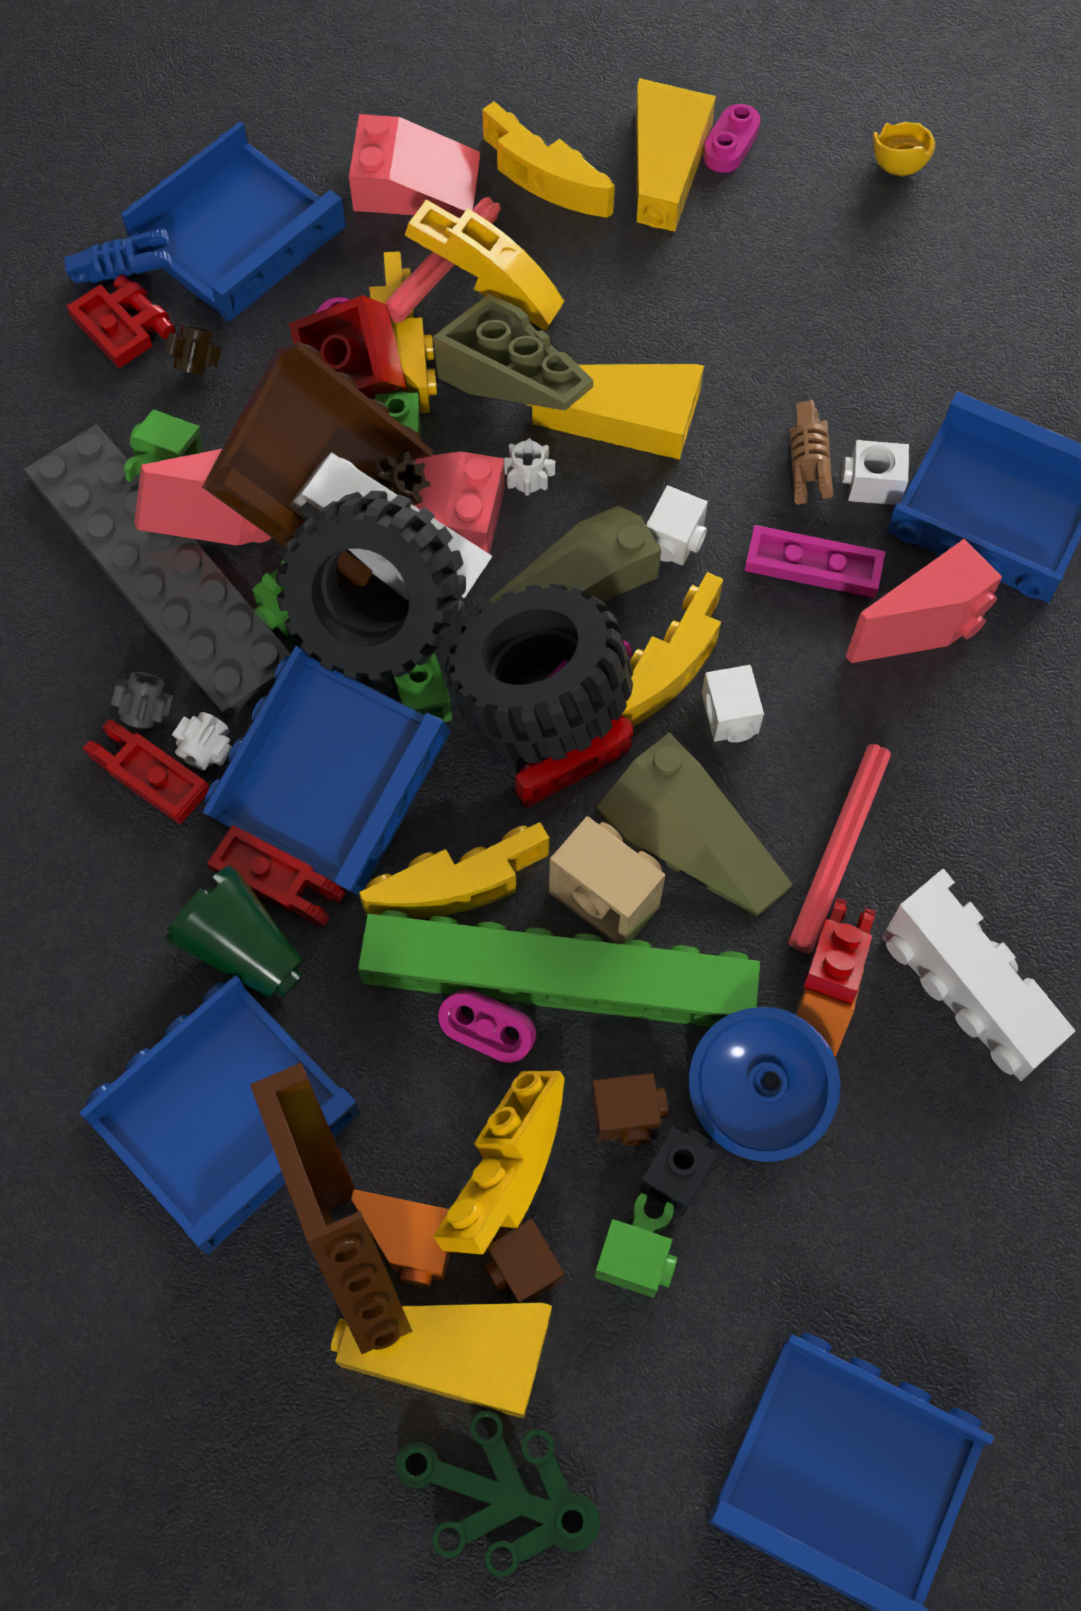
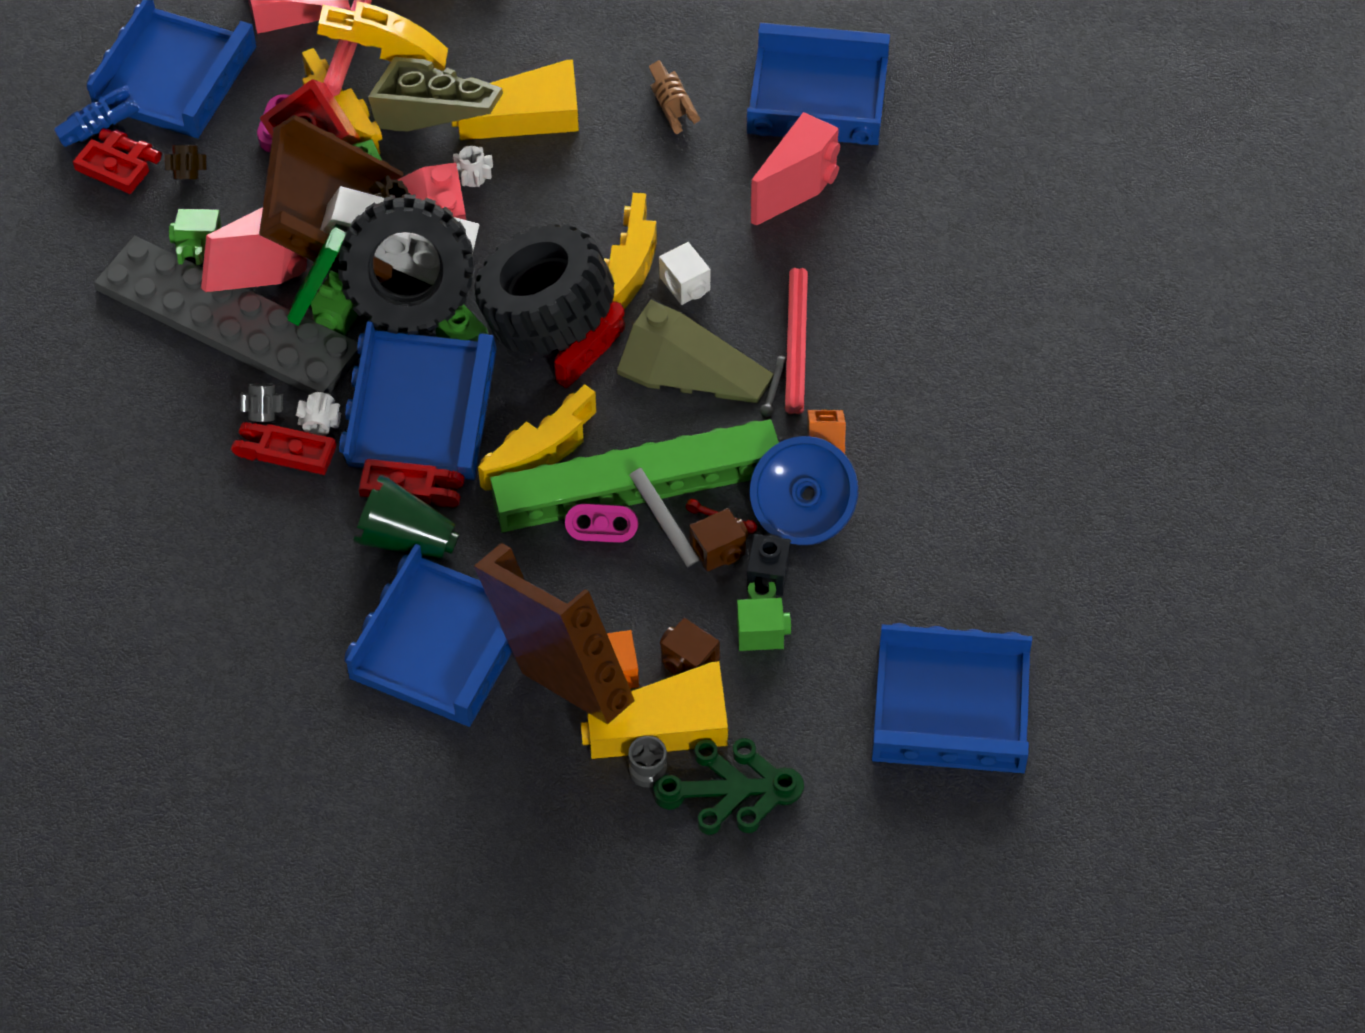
camera: 20 degrees left, 10 degrees down
(260, 560) = (316, 276): none -> green tile
(396, 1409) = (647, 752): none -> dark grey wheel
(514, 1158) = (656, 592): yellow slope -> none
(567, 1052) = (664, 517): none -> light grey bar
(596, 556) = (554, 199): olive wedge -> none
(606, 881) = (645, 404): tan brick -> none
(677, 1097) = (694, 507): none -> red hinge
(678, 524) = (596, 173): white brick -> none
(764, 933) = (767, 410): none -> dark grey hinge
(815, 561) = (704, 166): dark pink plate -> none
(840, 954) = (823, 397): red hinge -> none
(884, 458) = (724, 94): white brick -> none
(975, 978) = (917, 384): white wedge -> none

